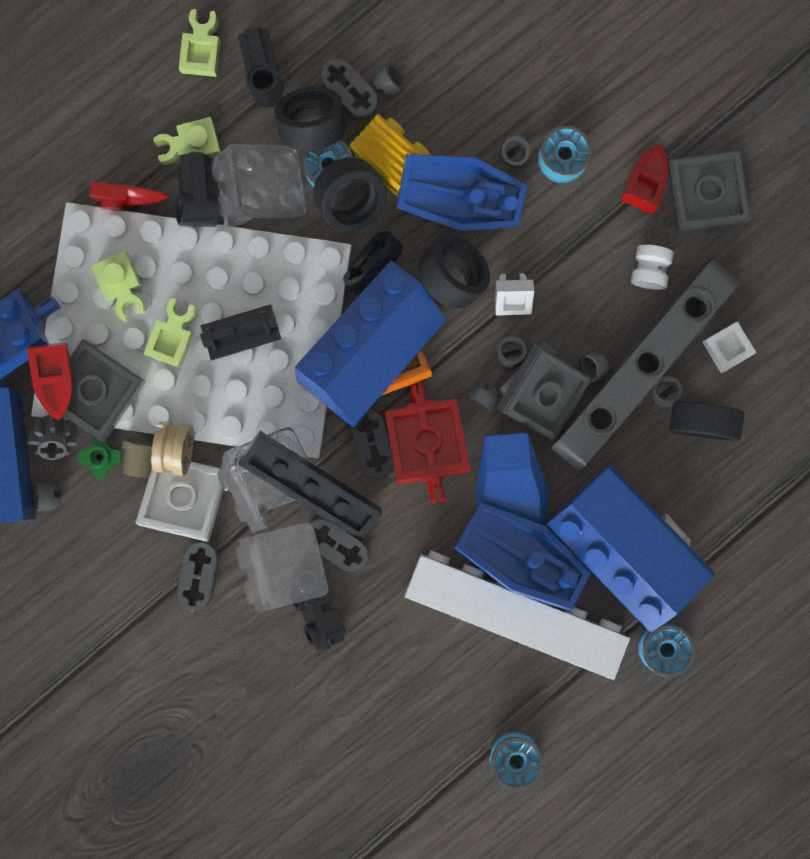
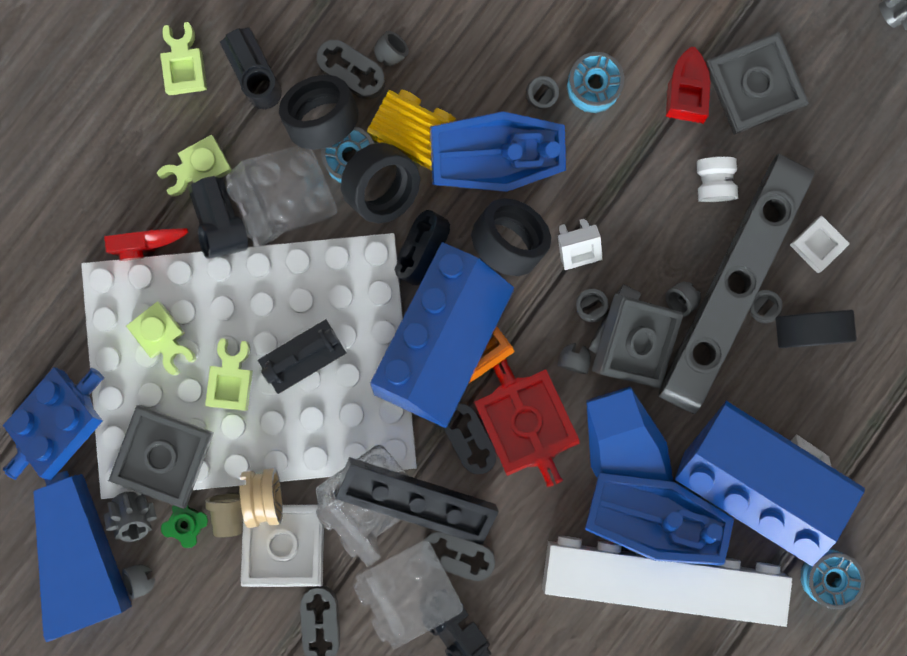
camera: 10 degrees left, 0 degrees up
(51, 376) = (115, 454): red plate -> none

